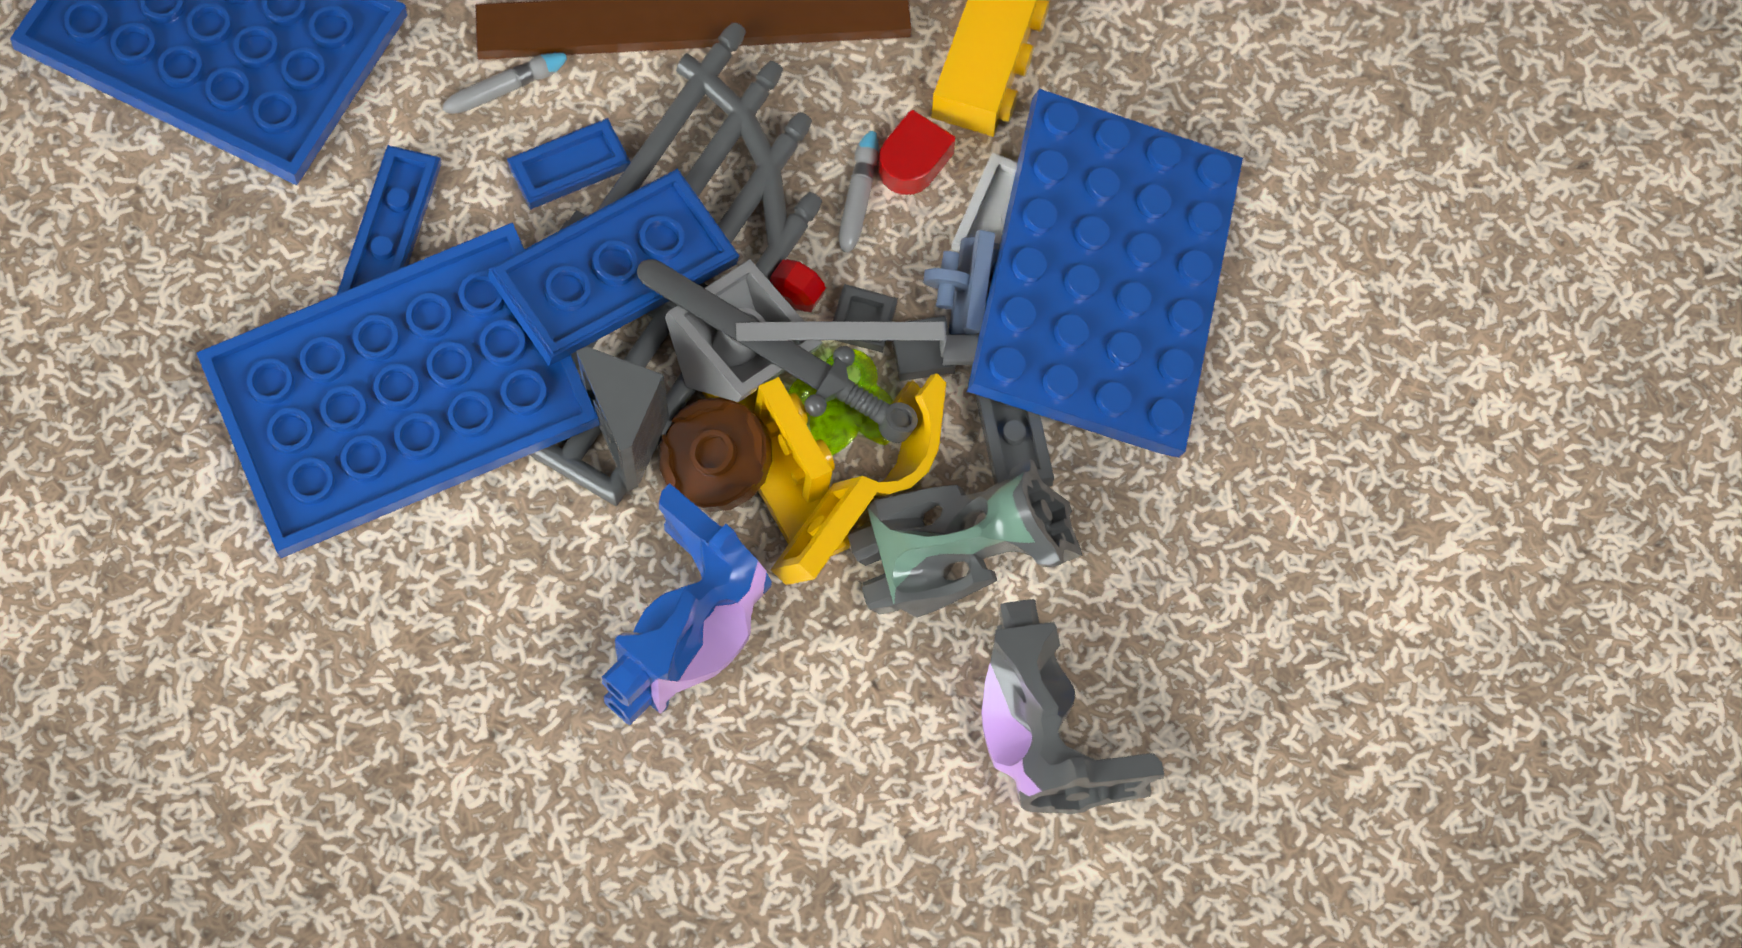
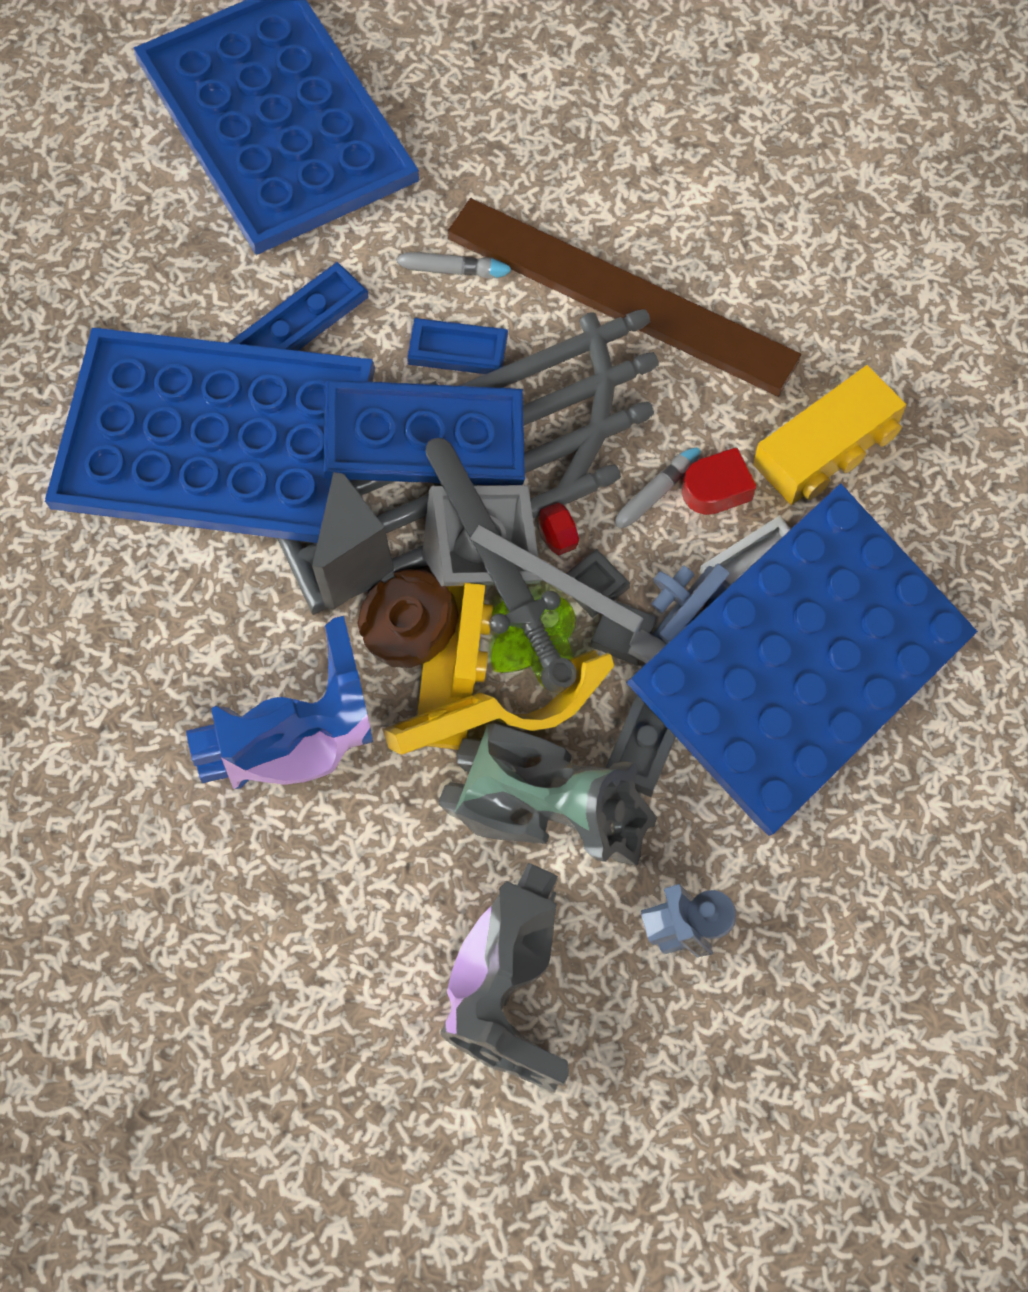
camera: 35 degrees right, 0 degrees up
(1170, 573) = (686, 920): none -> sand blue hips

